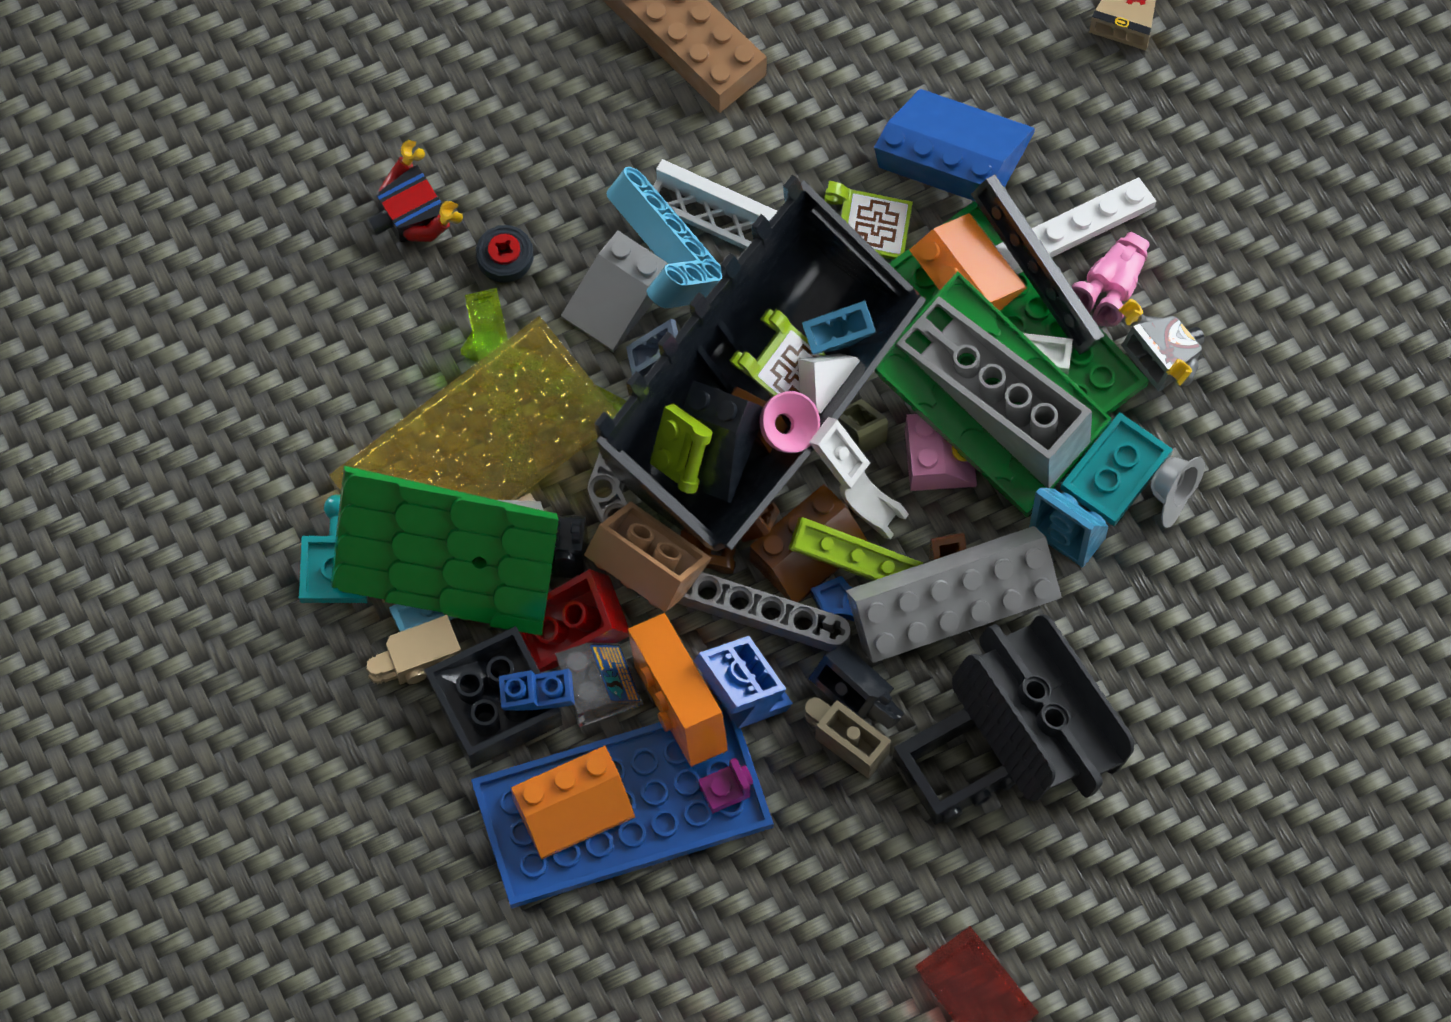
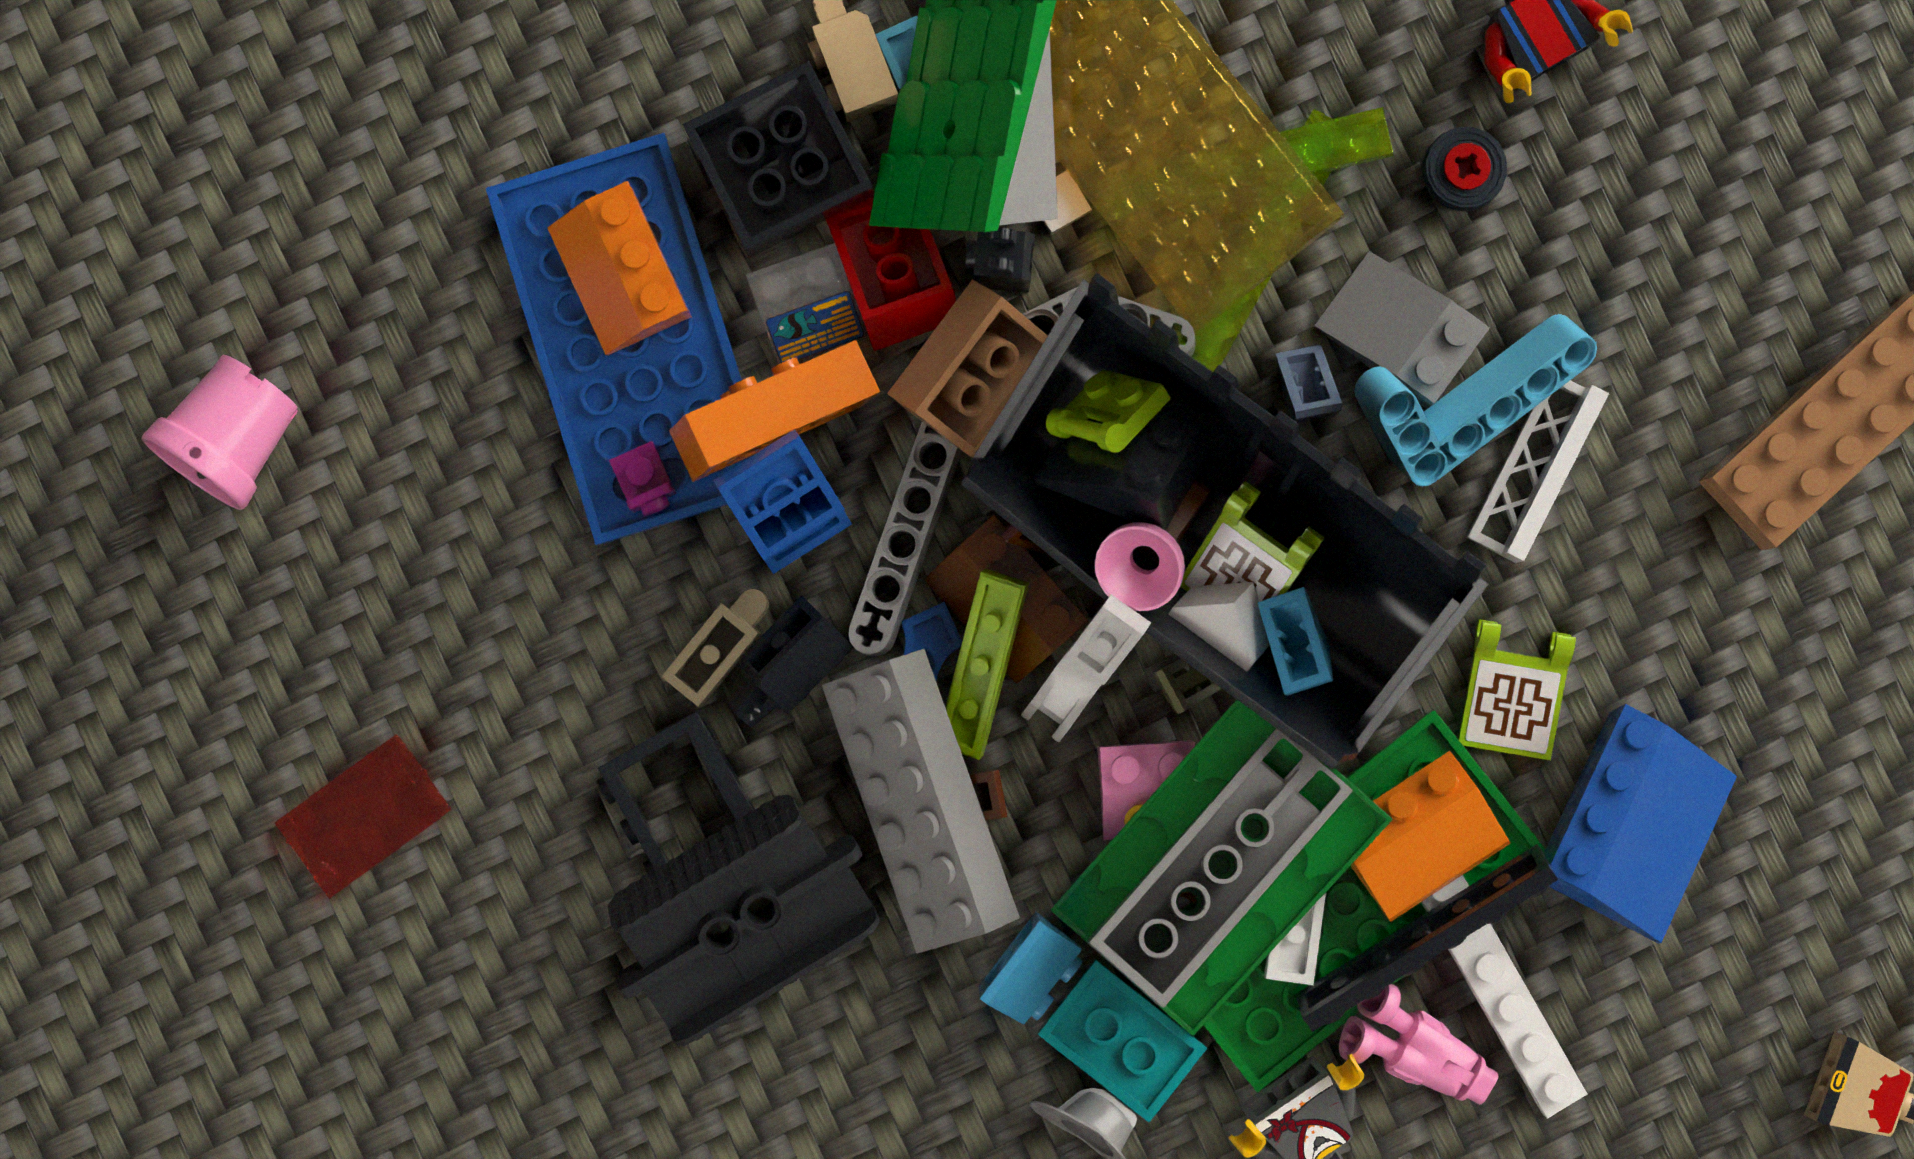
camera: 90 degrees right, 20 degrees up
(536, 691) = (771, 215): blue slope -> none

